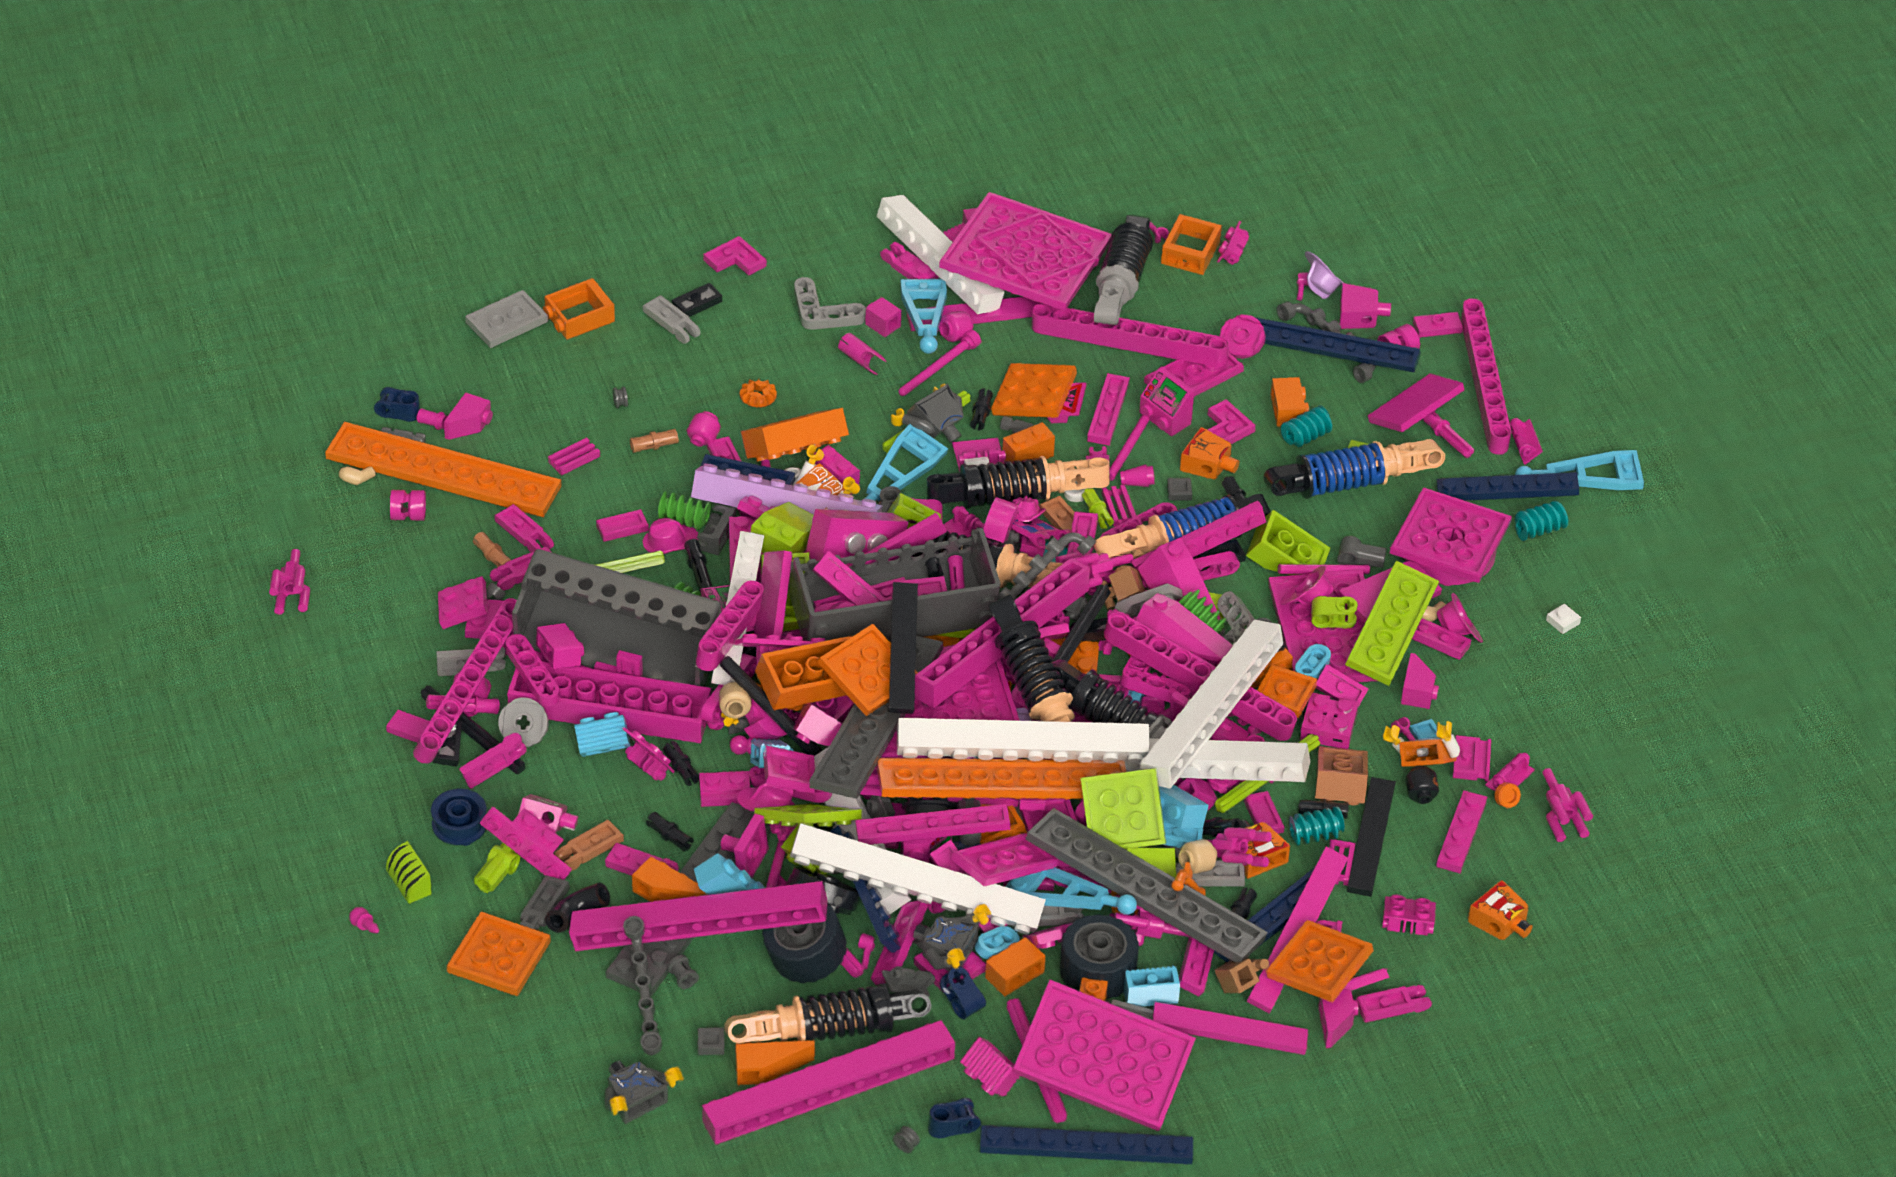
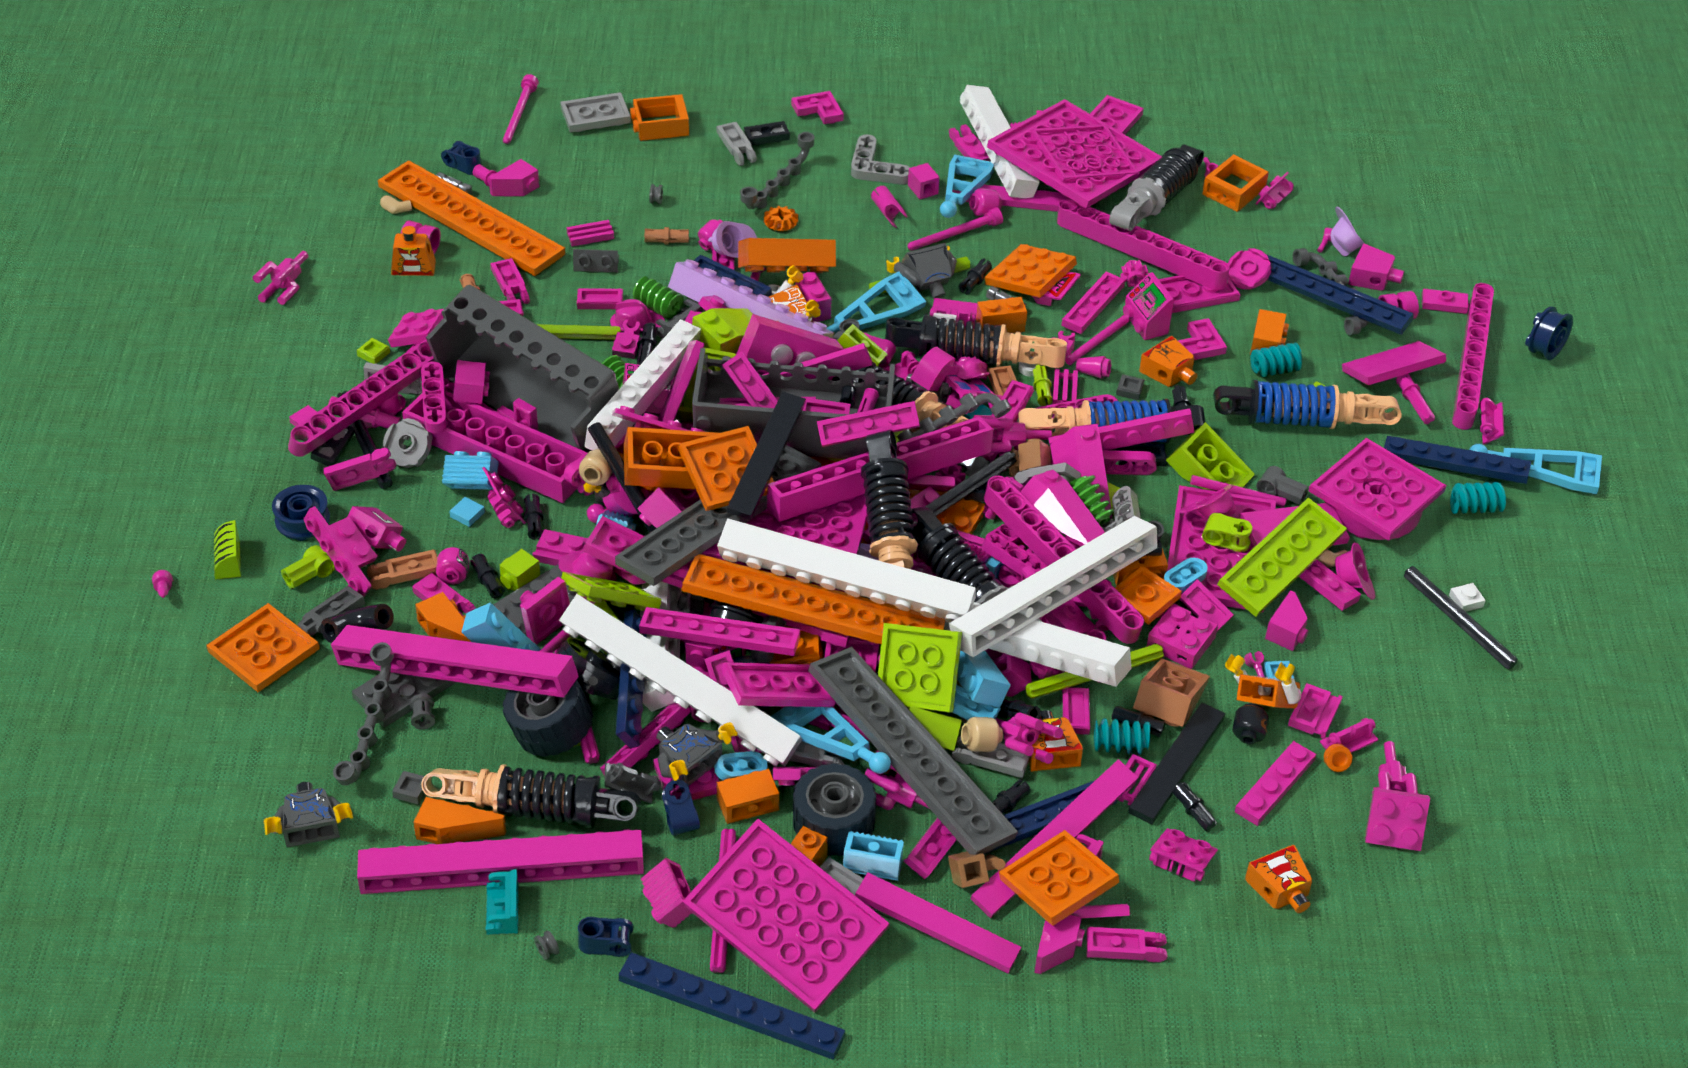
camera: 20 degrees right, 0 degrees up
(411, 526) = (412, 254): none -> orange torso
(419, 303) = (529, 84): none -> dark pink piece
(426, 637) = (373, 351): none -> lime tile
(598, 485) = (595, 260): none -> dark grey hinge
(614, 775) = (467, 511): none -> medium azure tile
(634, 830) = (452, 565): none -> dark pink head
(675, 564) = (627, 343): none -> dark pink plate
(699, 818) = (519, 570): none -> lime brick
(726, 376) = (758, 199): none -> dark grey bar
(727, 428) = (727, 235): none -> lavender piece
(729, 625) = (616, 392): dark pink beam -> none
(848, 1116) = (502, 903): none -> teal hinge
(867, 943) = (610, 731): dark pink hand -> none
(984, 593) = (861, 424): none -> dark pink plate
(1041, 192) = (1117, 113): none -> dark pink plate
(1135, 368) = (1133, 272): none -> dark pink gear
(1185, 877) = (958, 751): orange piece -> none
(1402, 870) = (1194, 806): none -> black axle
(1549, 336) = (1549, 332): none -> dark blue wheel
(1564, 639) = (1461, 618): none -> black axle
(1578, 834) = (1397, 819): none -> dark pink plate

